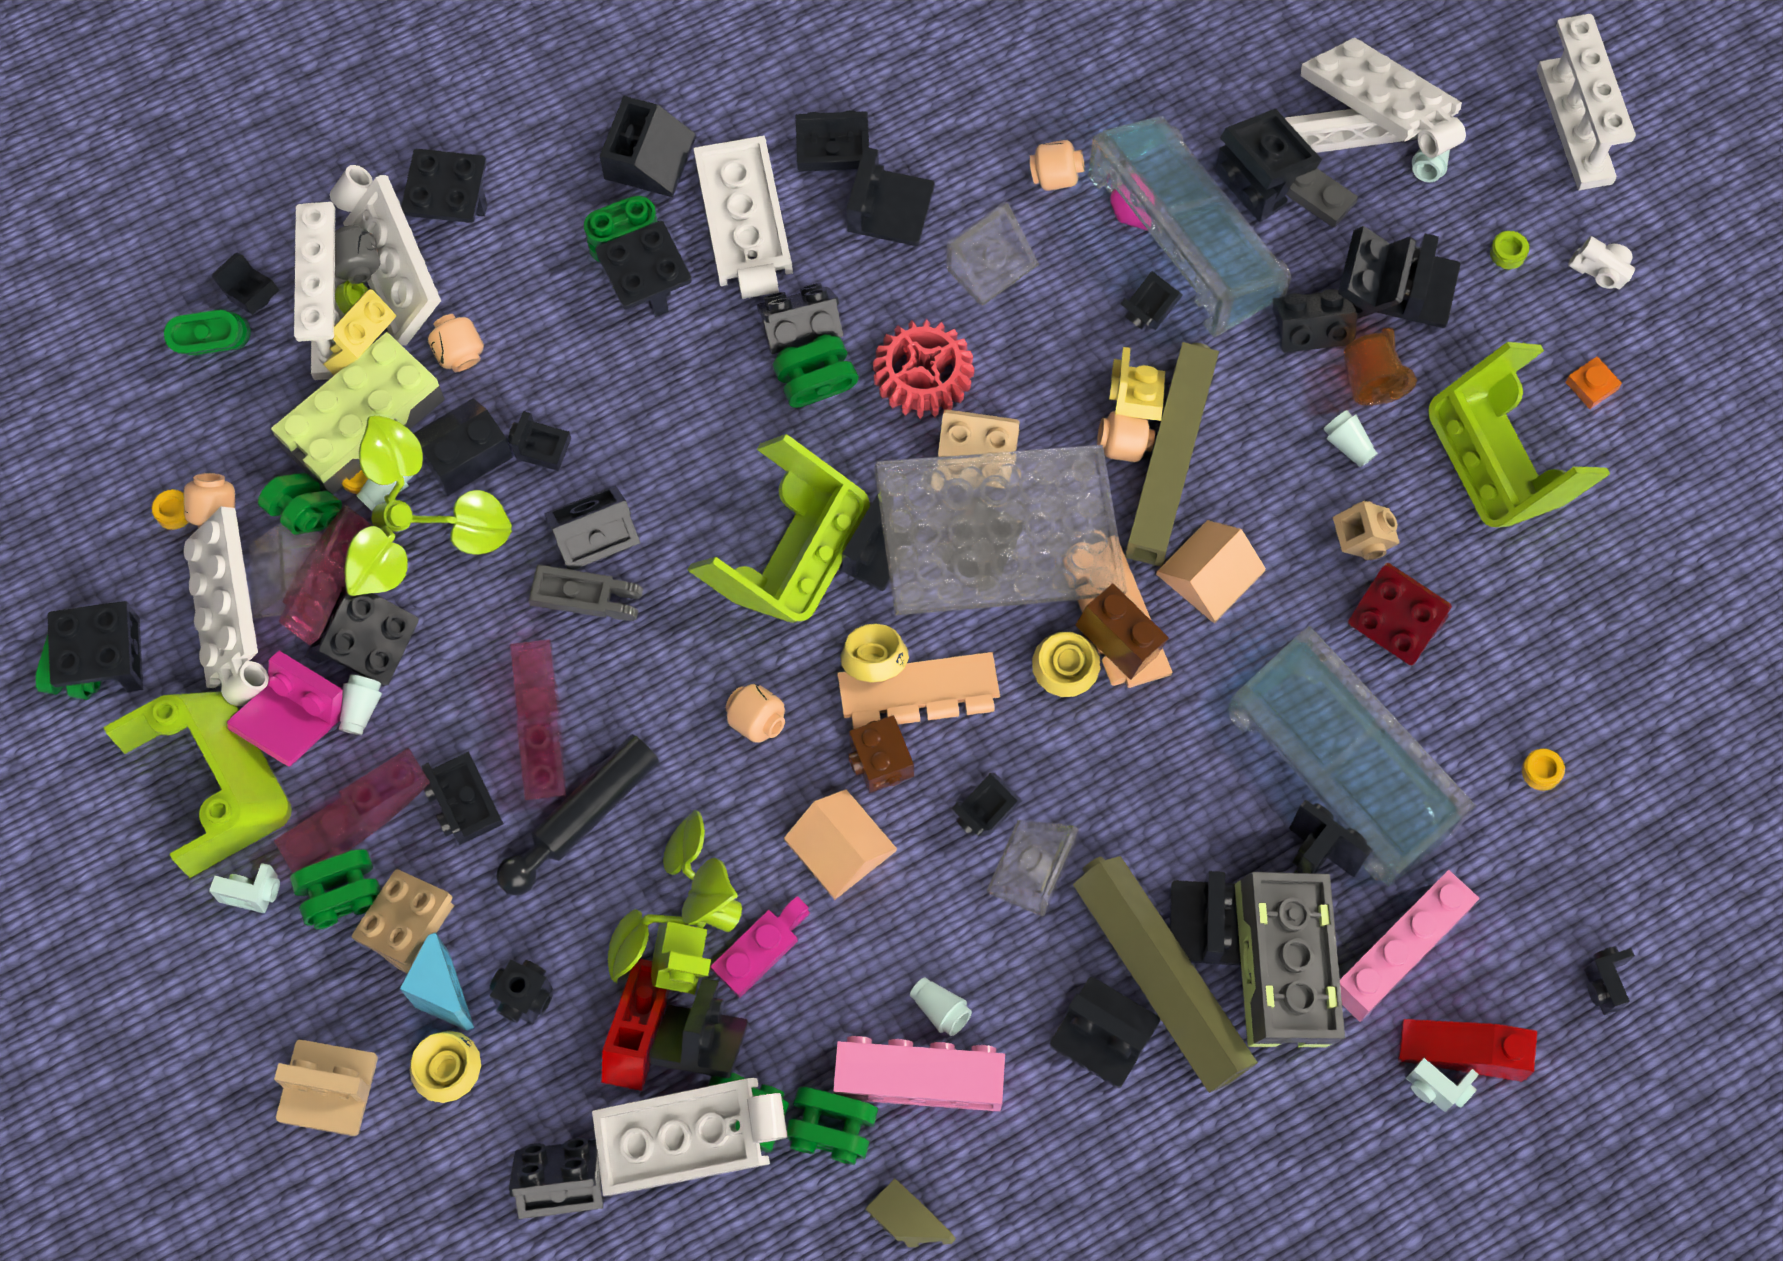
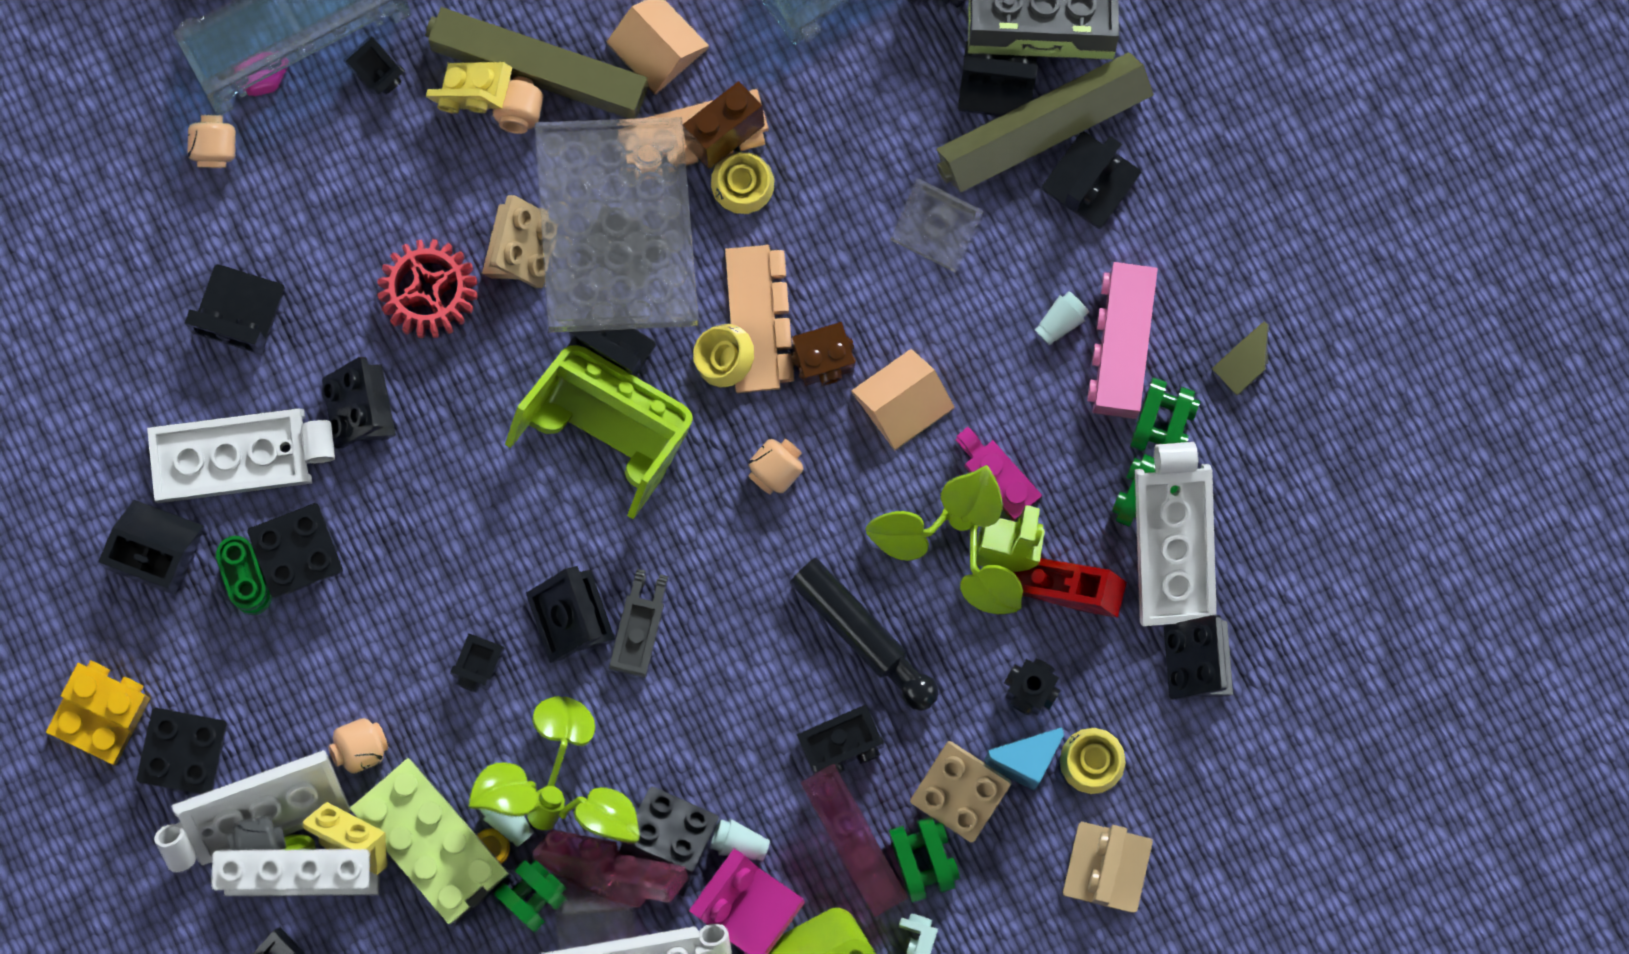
camera: 90 degrees left, 10 degrees up
(463, 446) = (465, 742): black slope -> none
(490, 123) = (98, 712): none -> yellow plate
(538, 720) = (770, 668): clear pink slope -> none
(699, 1037) = (1084, 527): black bracket -> none
(815, 371) = (412, 413): green brick -> none
(831, 140) = (161, 361): black bracket -> none
(986, 806) = (880, 263): black bracket -> none
(990, 255) = (310, 214): clear slope -> none

